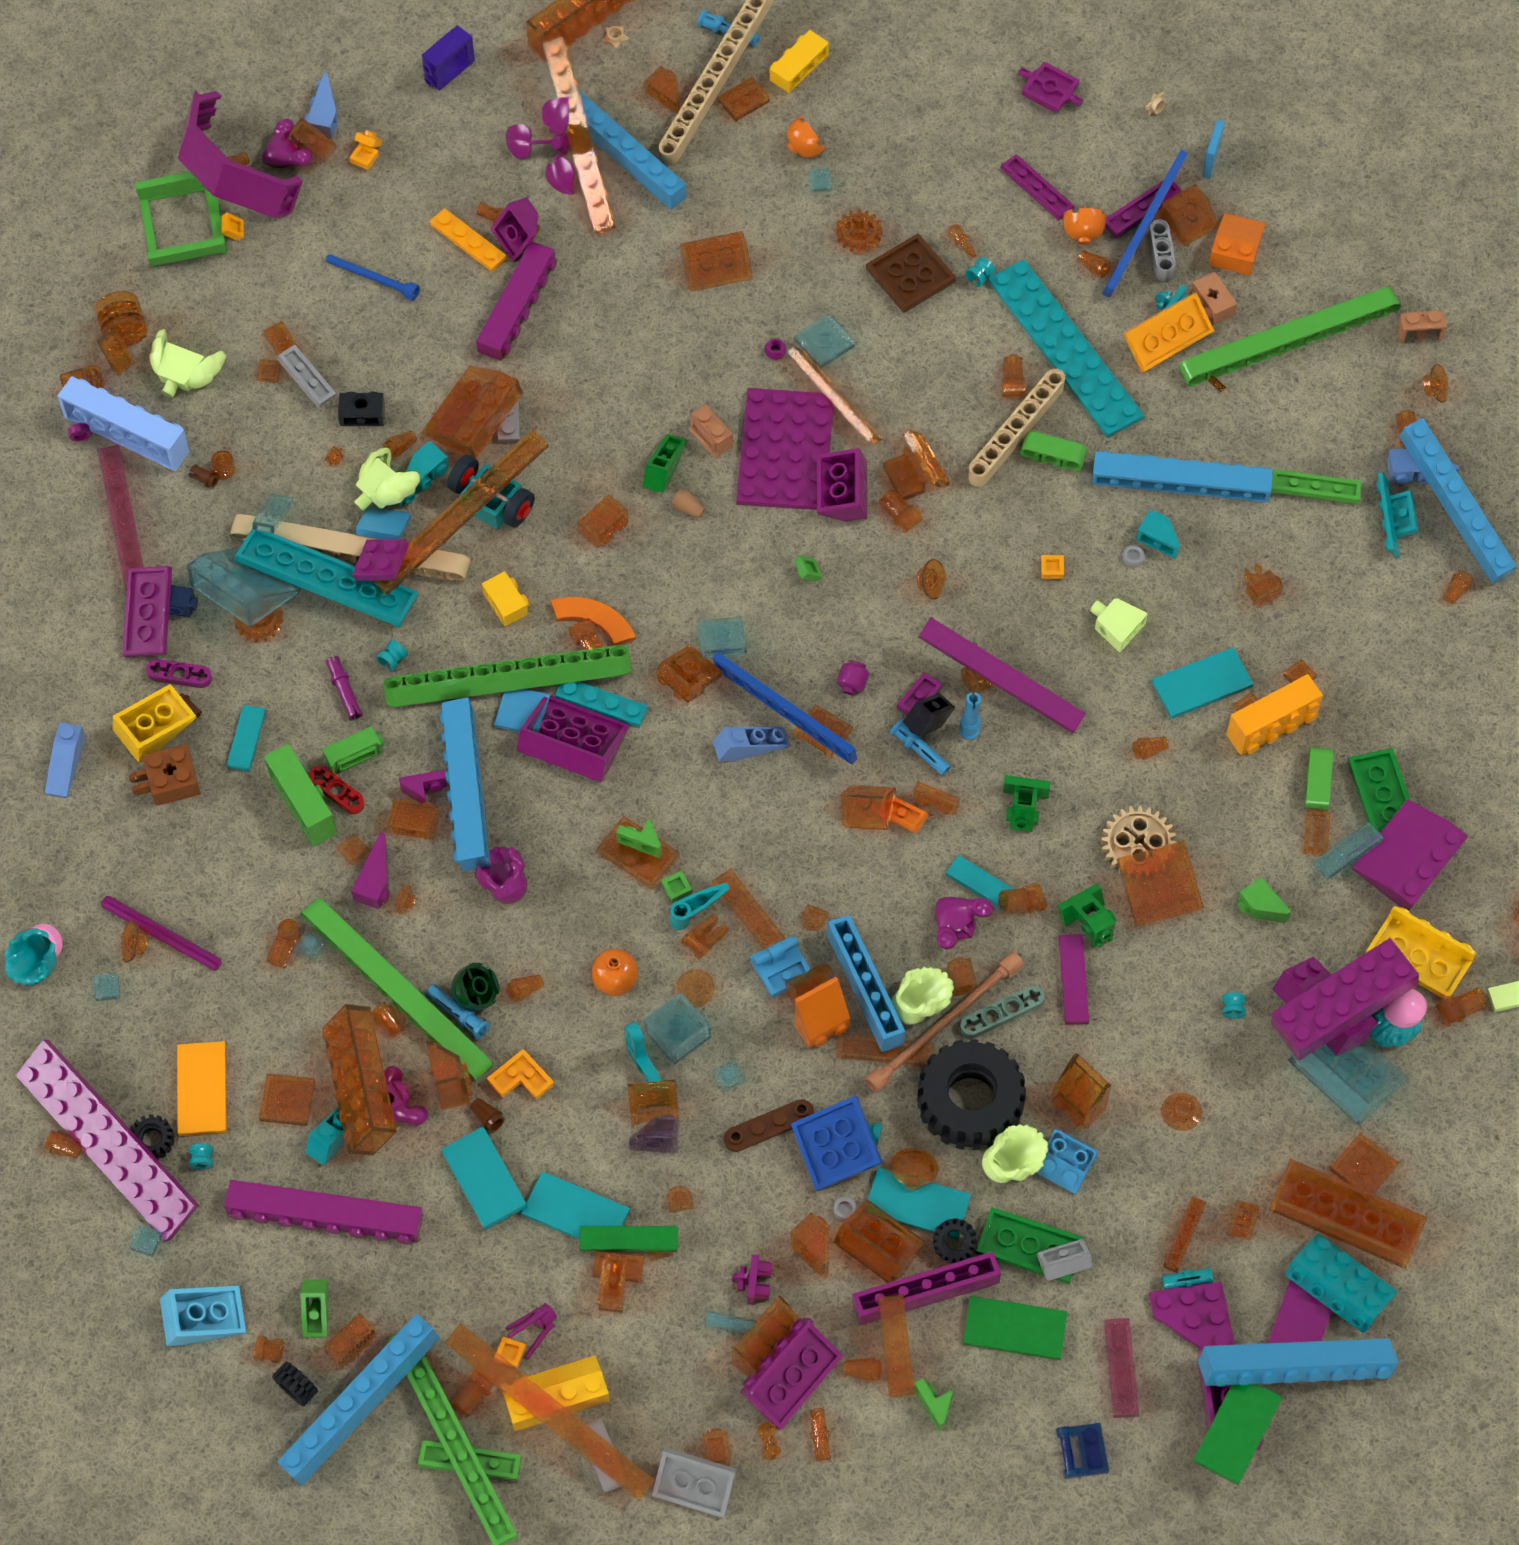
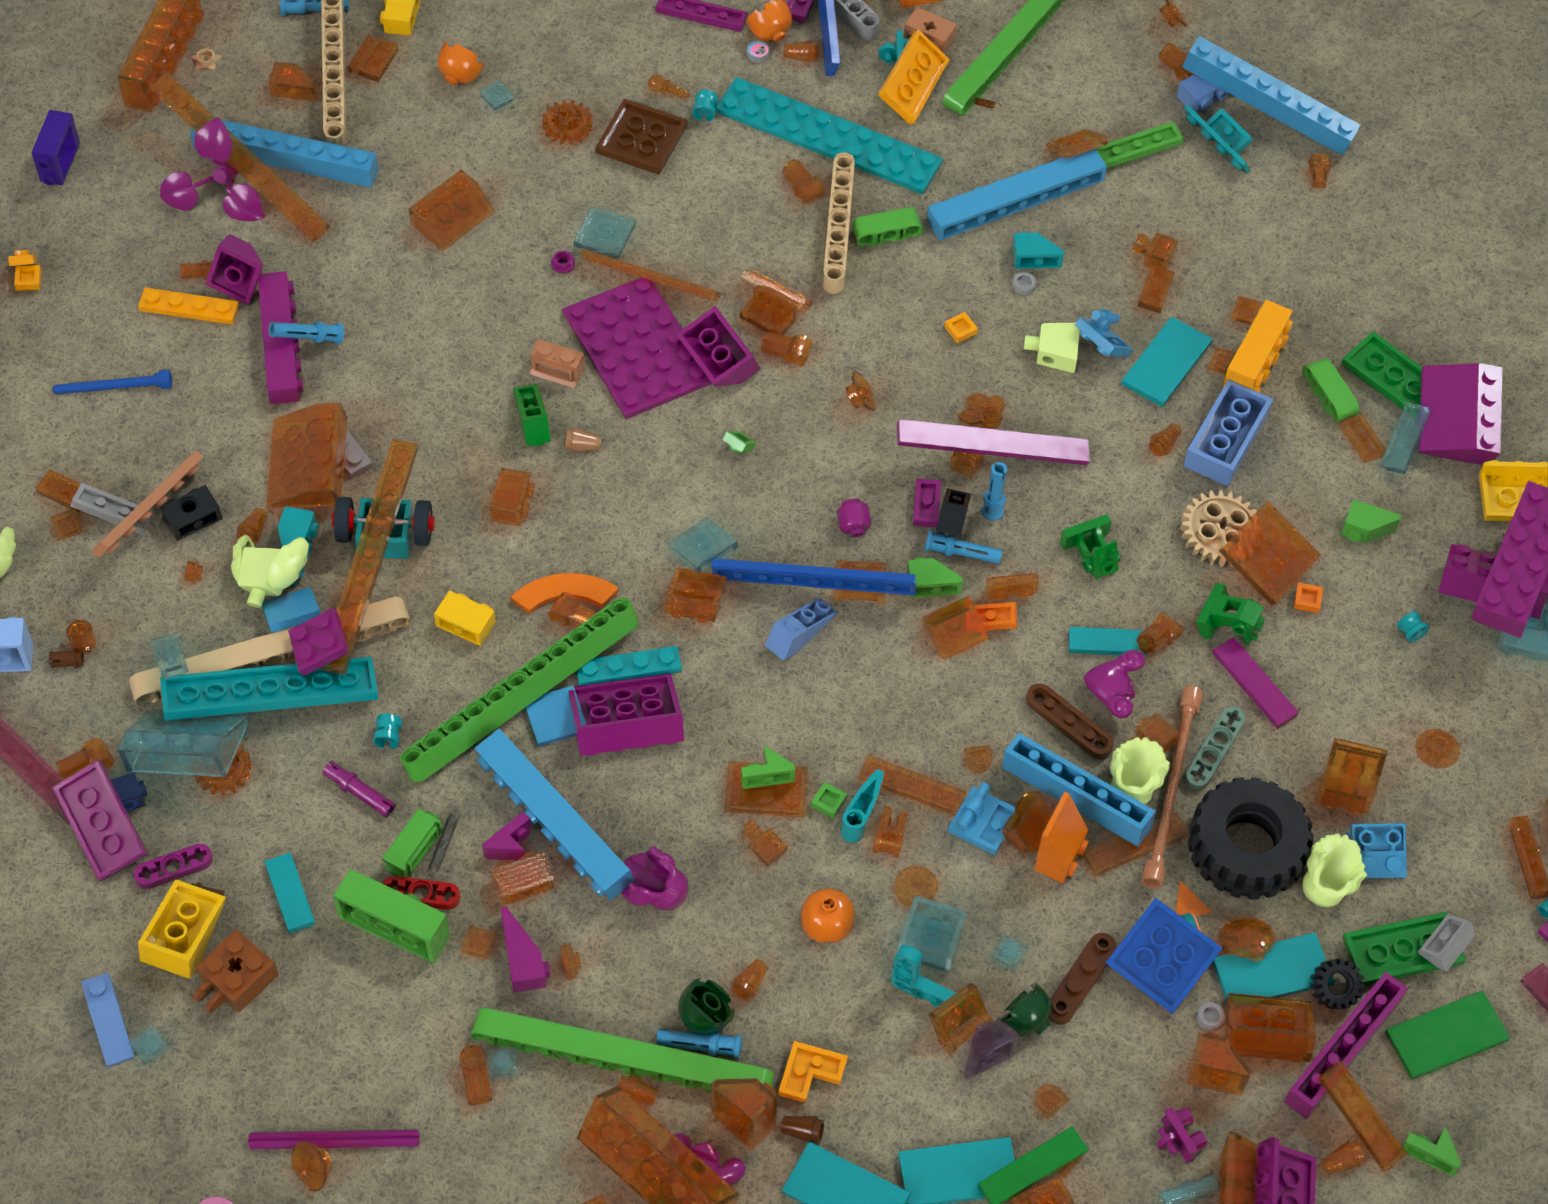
camera: 35 degrees left, 5 degrees down
(80, 793) = (149, 1044): none -> clear light blue plate
(177, 559) = (90, 752): none -> clear orange piece
(323, 390) = (142, 511): none -> nougat plate
(380, 764) = (439, 843): none -> flat silver piece
(545, 311) = (317, 332): none -> dark azure pin
(606, 893) = (766, 844): none -> clear orange plate
(705, 1127) = (1029, 1012): none -> dark green cylinder
(876, 758) = (933, 578): none -> bright green slope
(892, 1120) = (1190, 903): none -> orange piece
(903, 927) = (1069, 721): none -> reddish brown plate
(1020, 645) = (983, 410): none -> clear orange plate
(1059, 245) = (757, 51): none -> tile
(1159, 633) = (1099, 332): none -> dark azure plate
(1167, 936) = (1308, 597): none -> orange plate
(1202, 768) = (1228, 432): none -> medium blue brick
(1238, 617) = (1156, 289): none -> clear orange plate
(1262, 459) = (1076, 143): none -> clear orange tile

